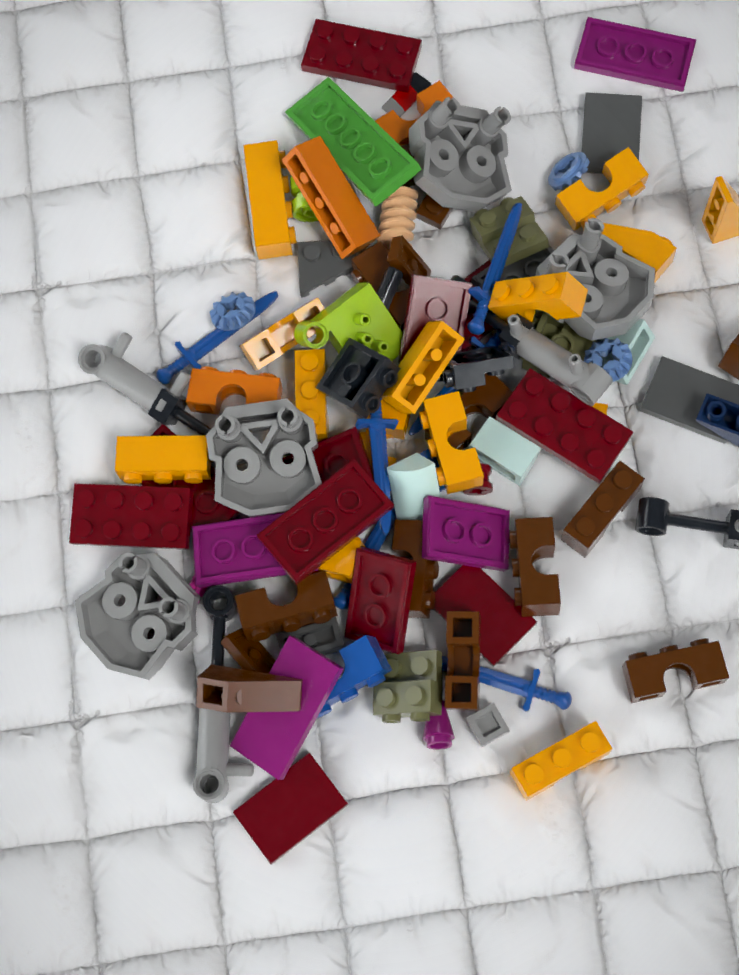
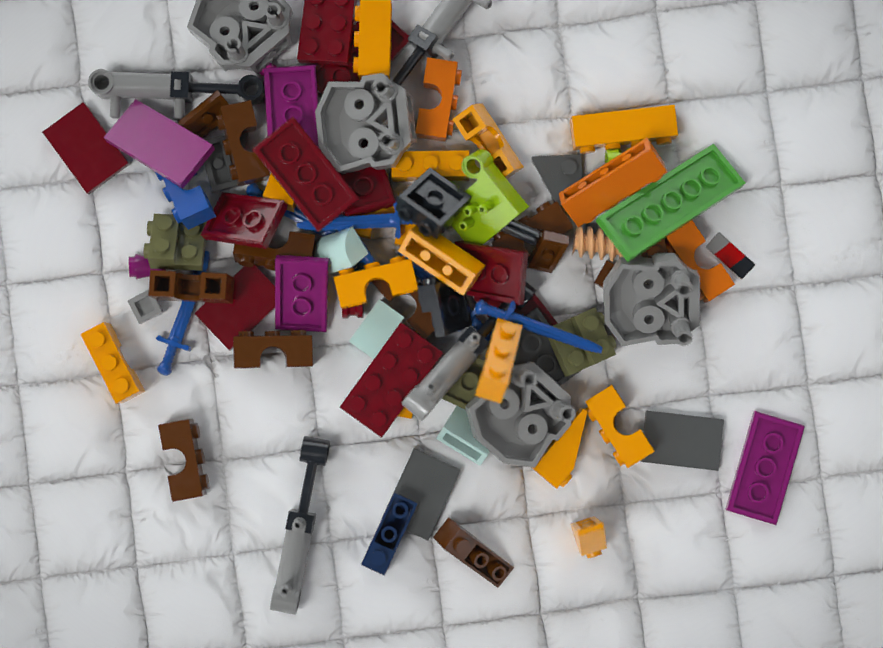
camera: 85 degrees right, 15 degrees up
(207, 344) = (492, 82): blue sword -> none
(234, 318) = (505, 97): medium blue gear -> none
(247, 691) = (166, 106): reddish brown slope -> none
(361, 55) = (772, 214): dark red plate -> none
(568, 170) = (648, 402): medium blue gear -> none
(601, 508) = (321, 409): reddish brown arch -> none
(621, 354) = (437, 422): medium blue gear -> none

